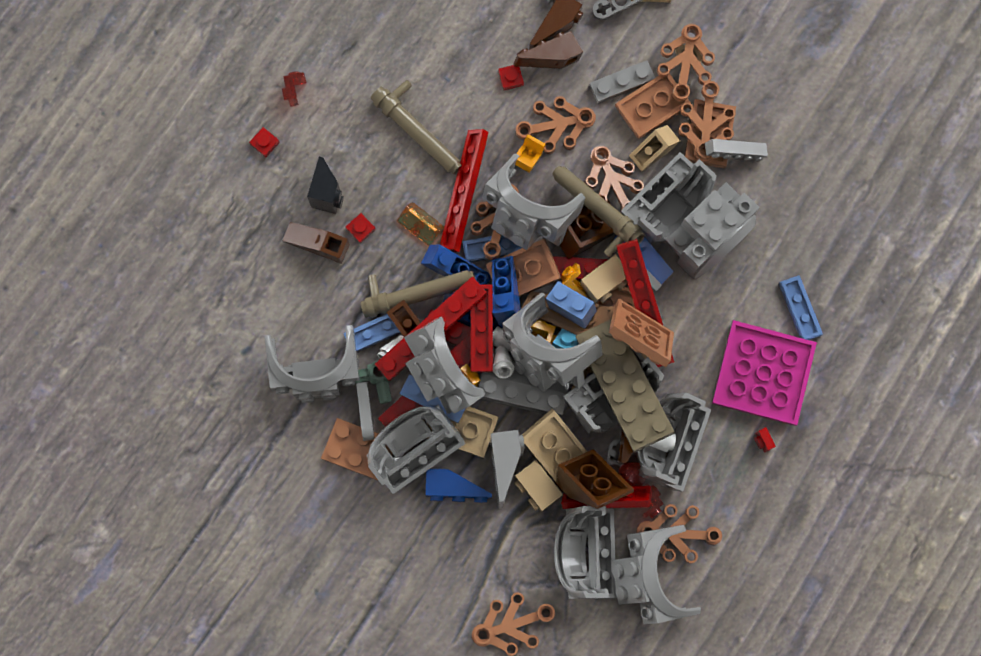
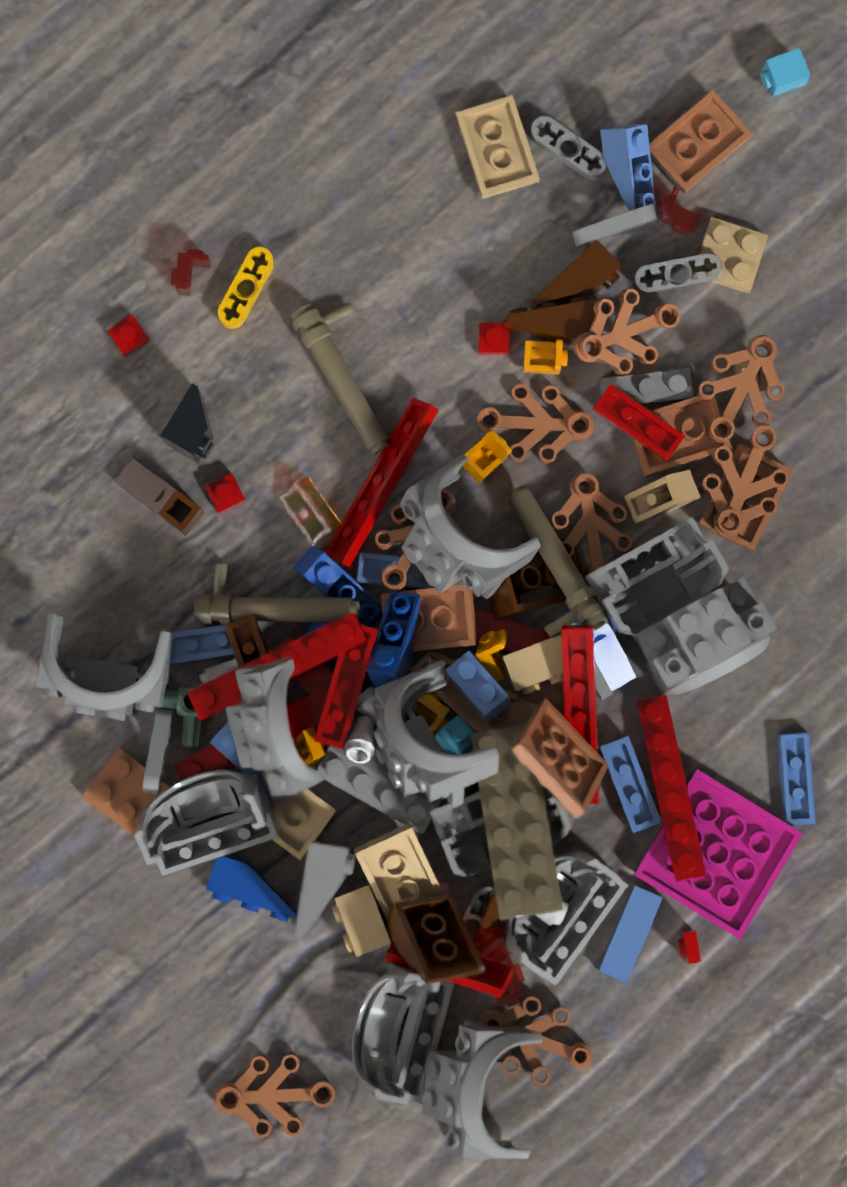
camera: 20 degrees right, 5 degrees up
(339, 96) = (263, 272): none -> yellow beam
(549, 78) = (544, 357): none -> light orange bracket
(595, 48) = (621, 332): none -> nougat plant
(624, 102) = (638, 422): none -> red plate
(692, 344) = (630, 784): none -> medium blue plate
(720, 337) = (671, 788): none -> red plate
(721, 444) = (630, 934): none -> medium blue tile
(736, 149) = (773, 533): light grey piece -> none

